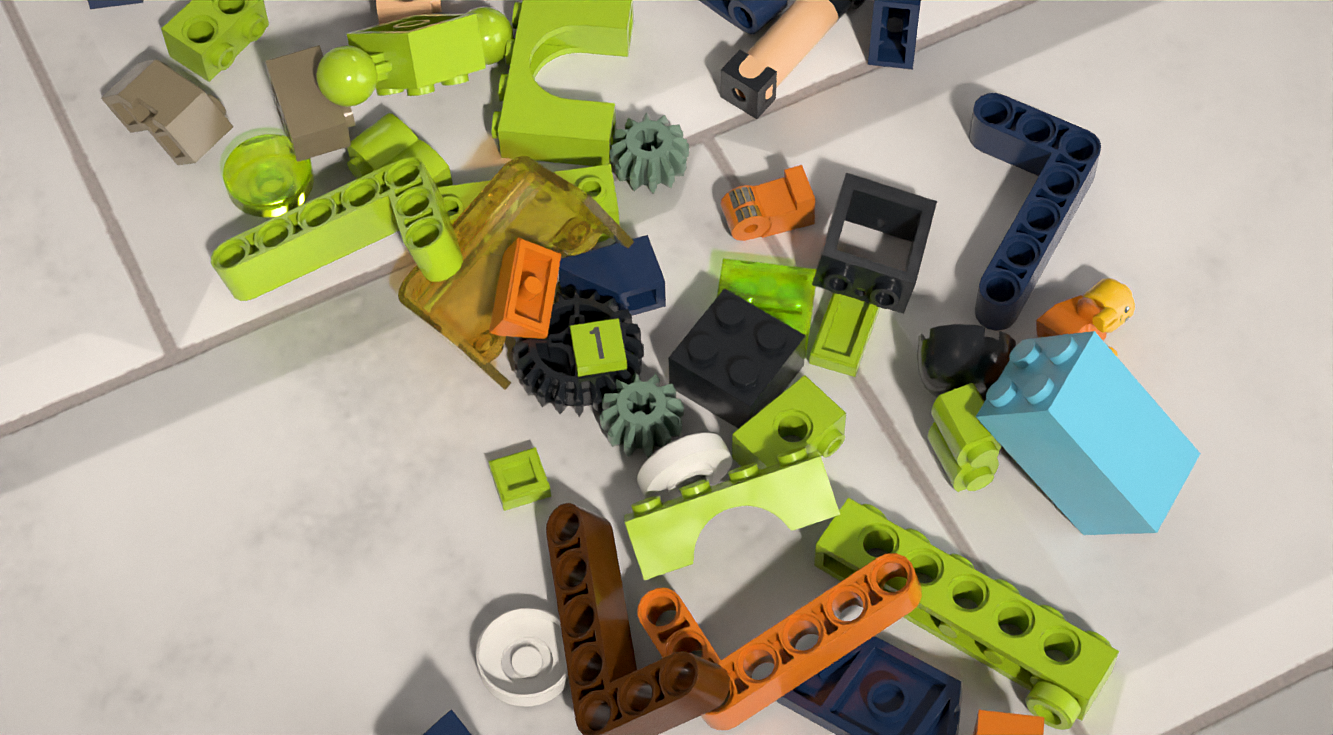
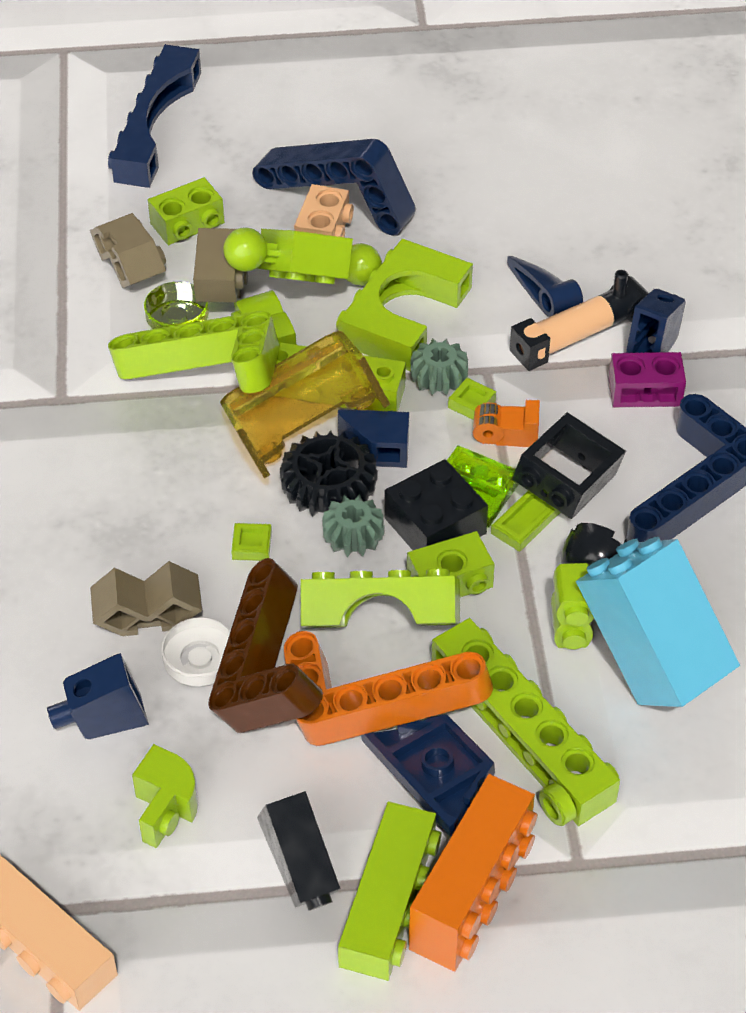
camera: 20 degrees right, 10 degrees down
(451, 600) = (128, 603): none -> dark tan brick
(525, 291) = (307, 420): orange slope -> none
(598, 347) = (338, 468): lime tile -> none
(682, 463) = (362, 554): white piece -> none
(706, 183) = (469, 396): none -> lime tile
(922, 85) = (647, 379): none -> magenta brick
(1097, 310) = (714, 560): piece -> none

